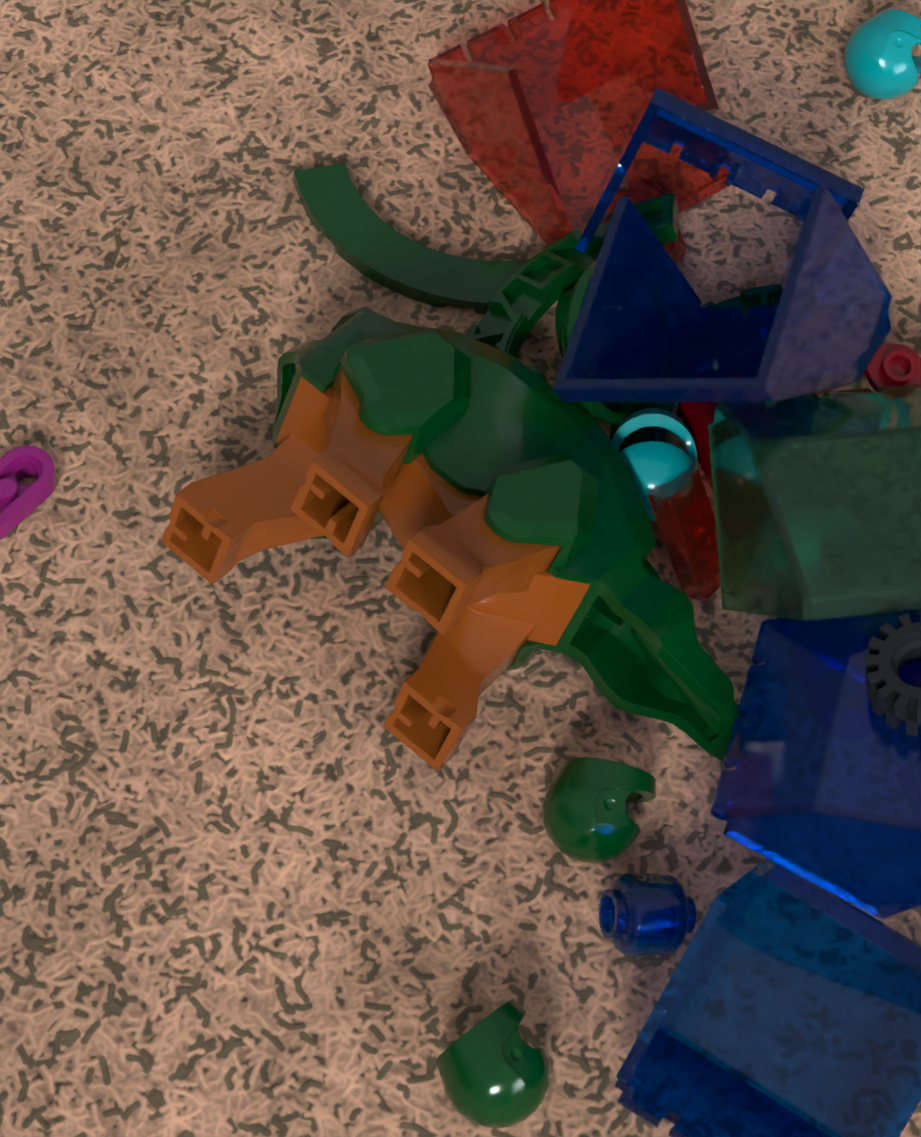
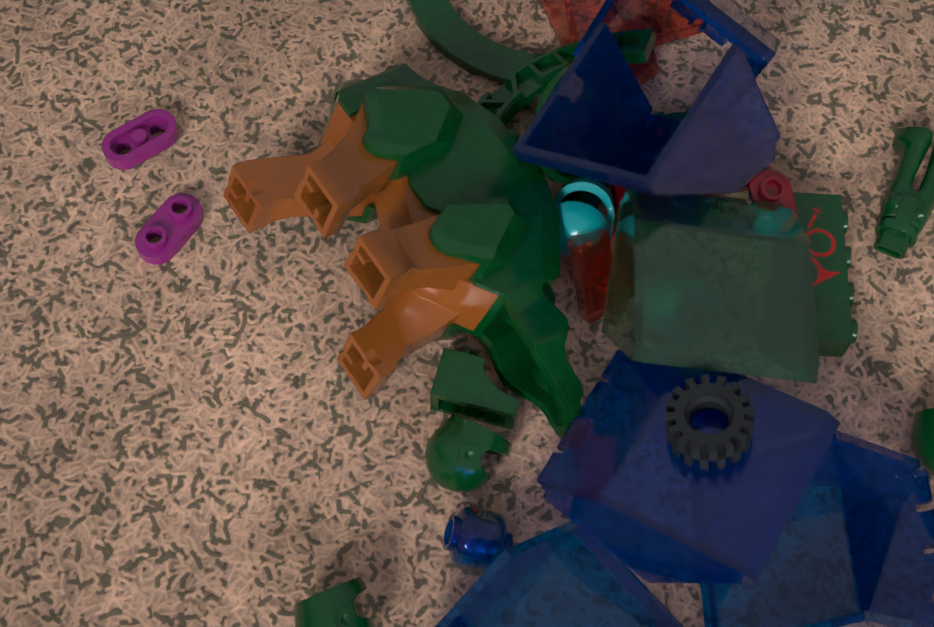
camera: 15 degrees right, 5 degrees up
(88, 602) = (172, 227): none -> magenta plate
(569, 722) = (466, 391): none -> dark green arch

